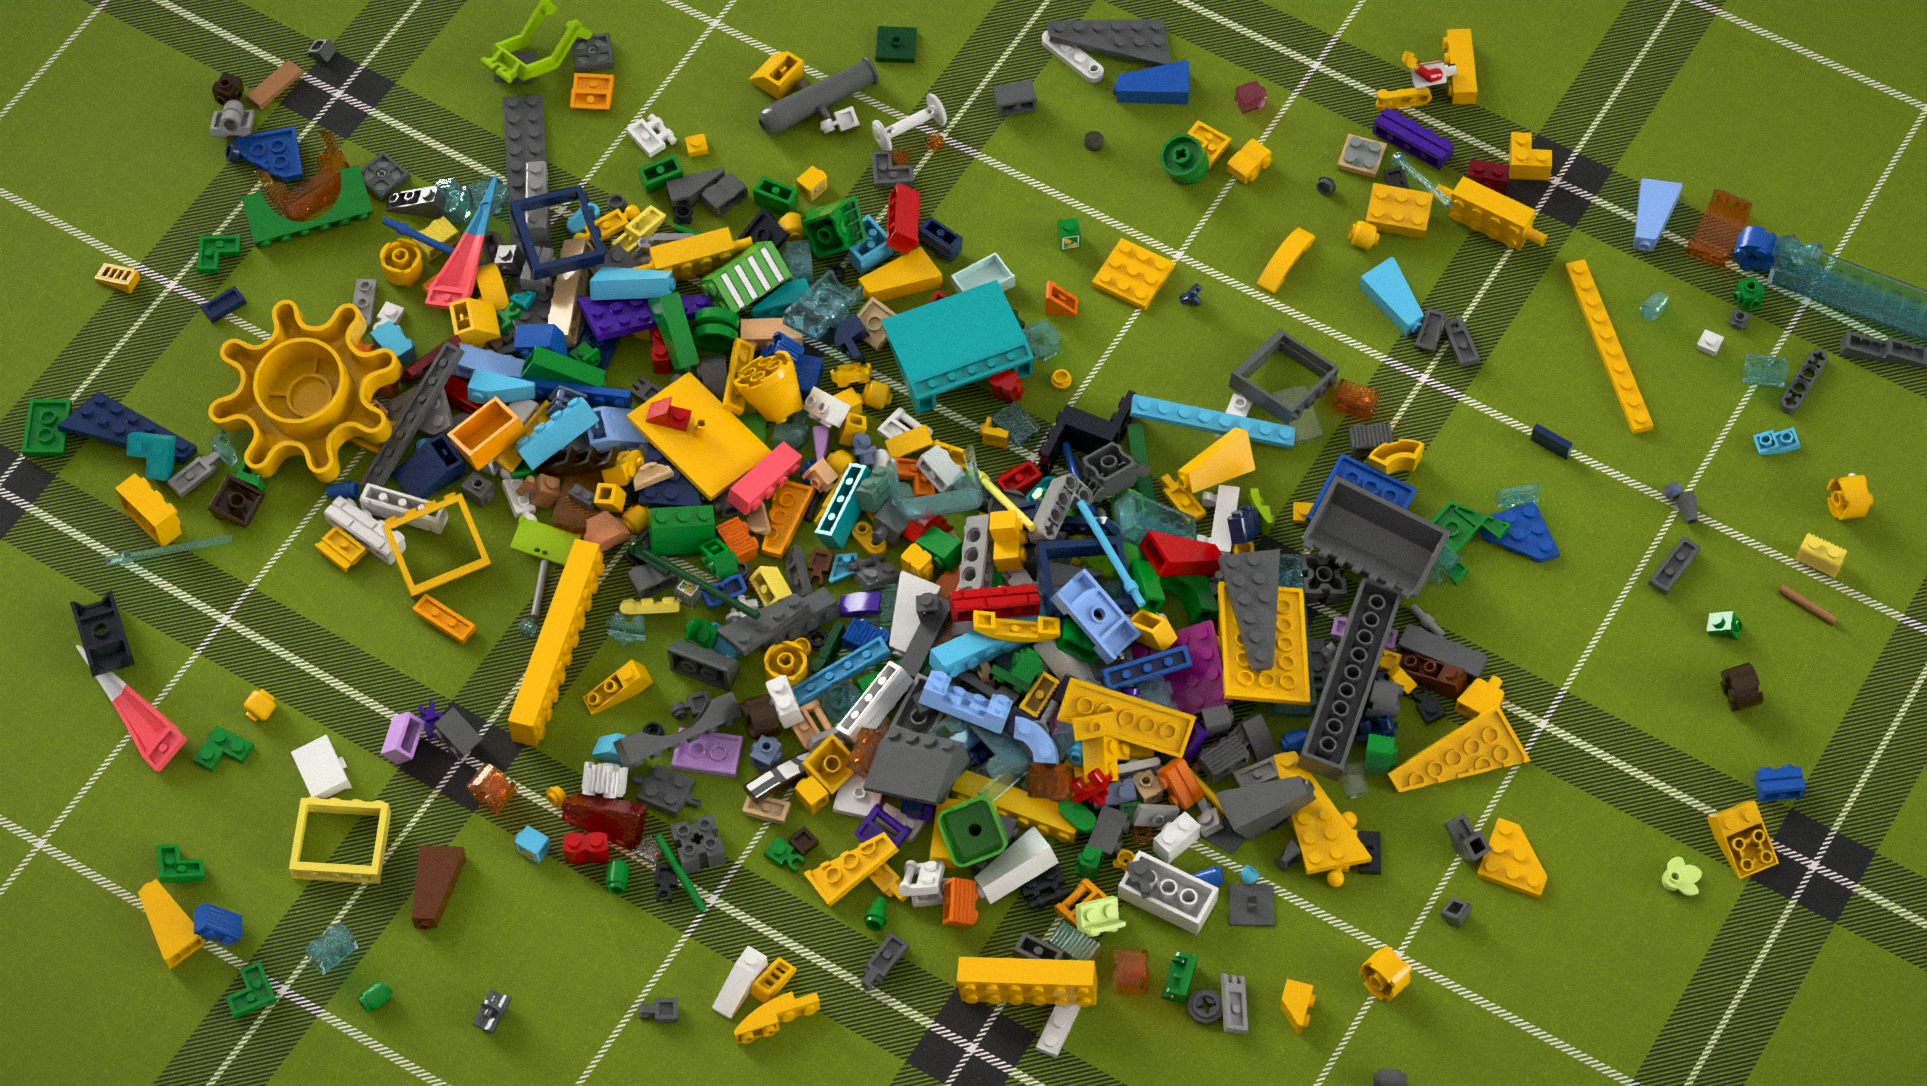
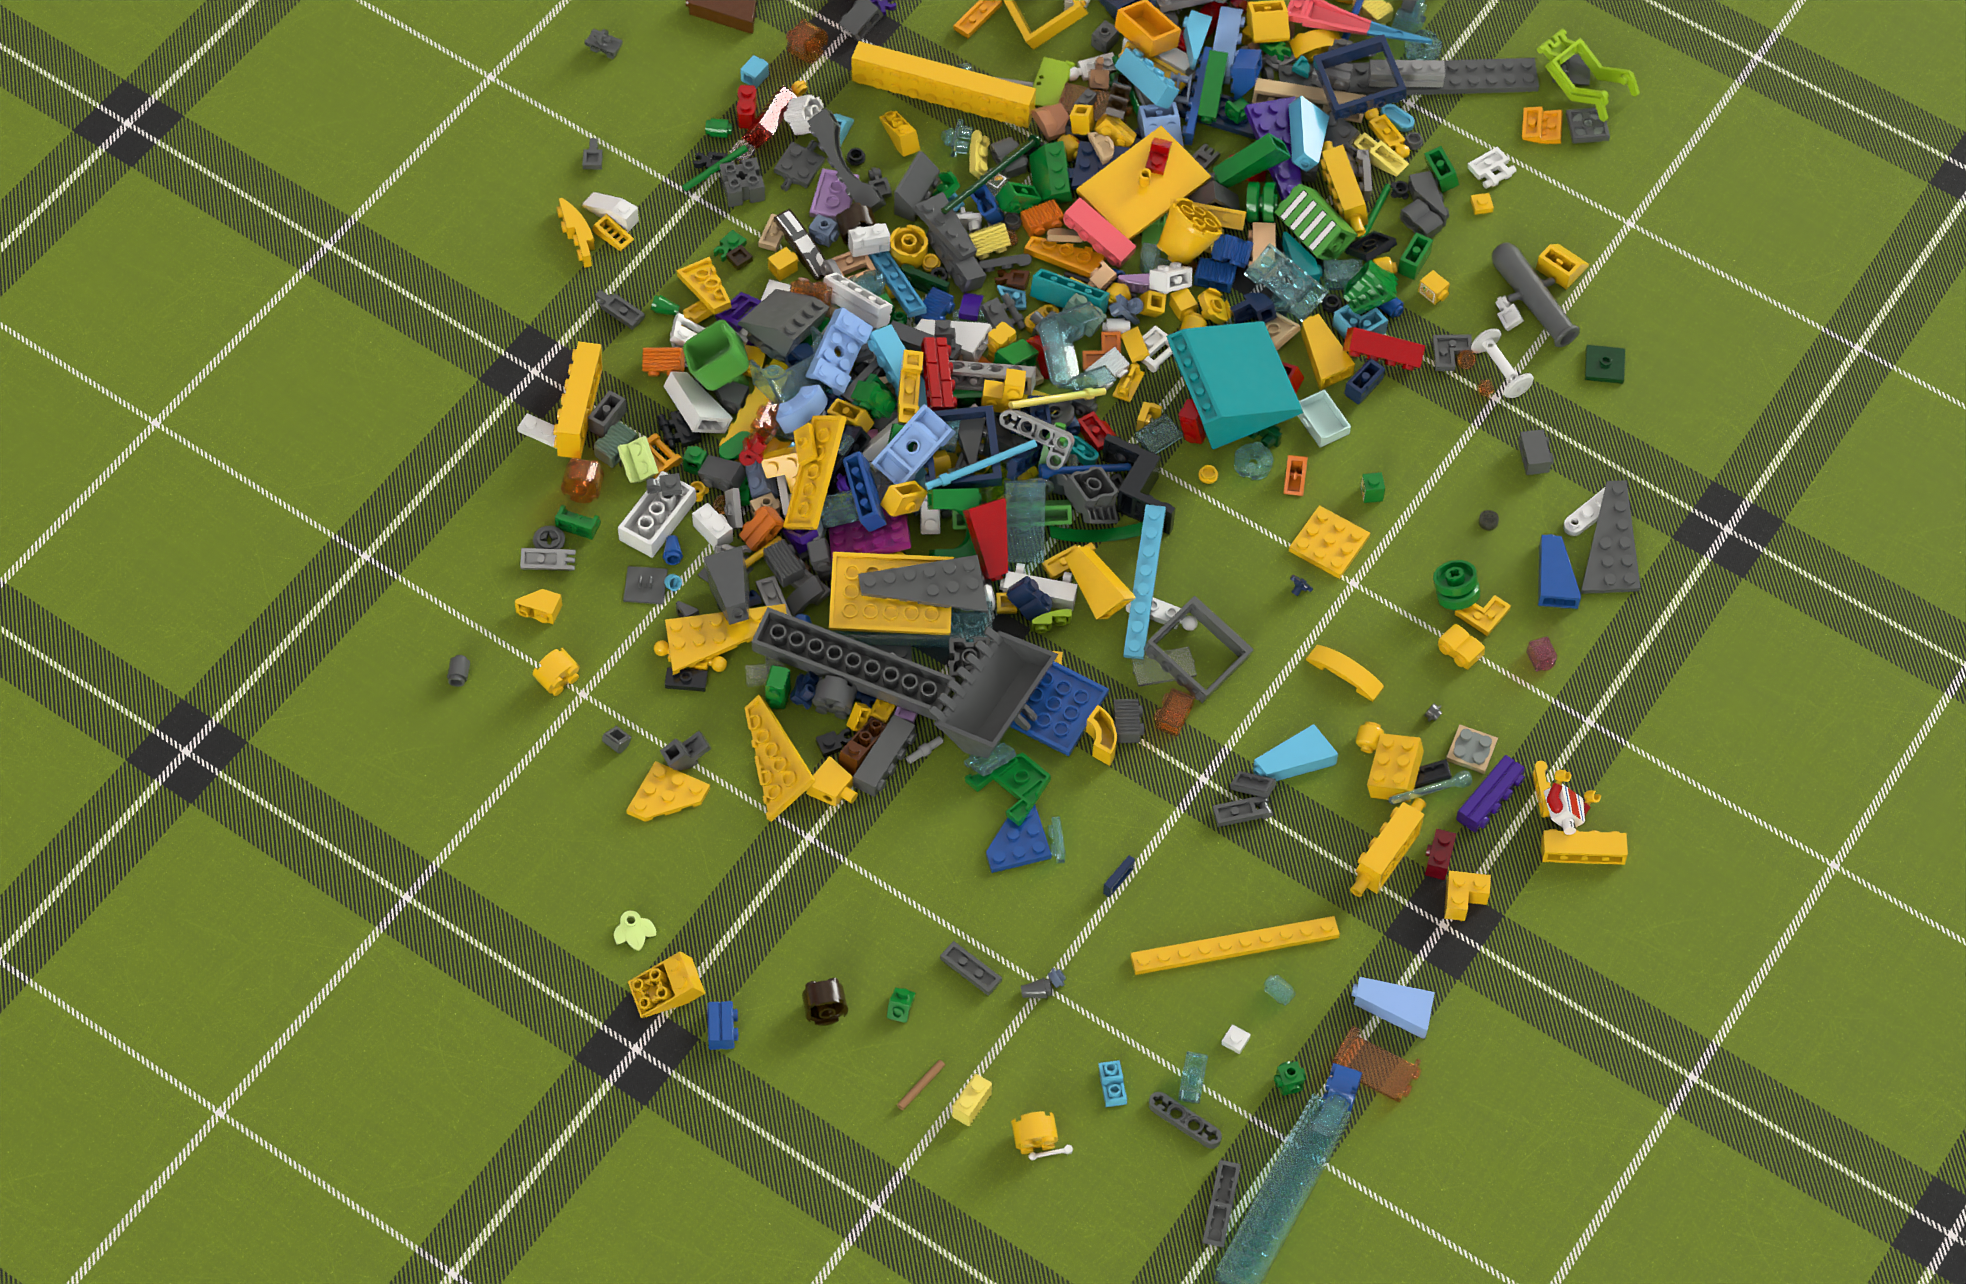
camera: 90 degrees right, 0 degrees up
(829, 763) = (806, 266): yellow slope -> none
(1739, 323) = (1263, 1075): dark grey plate -> none

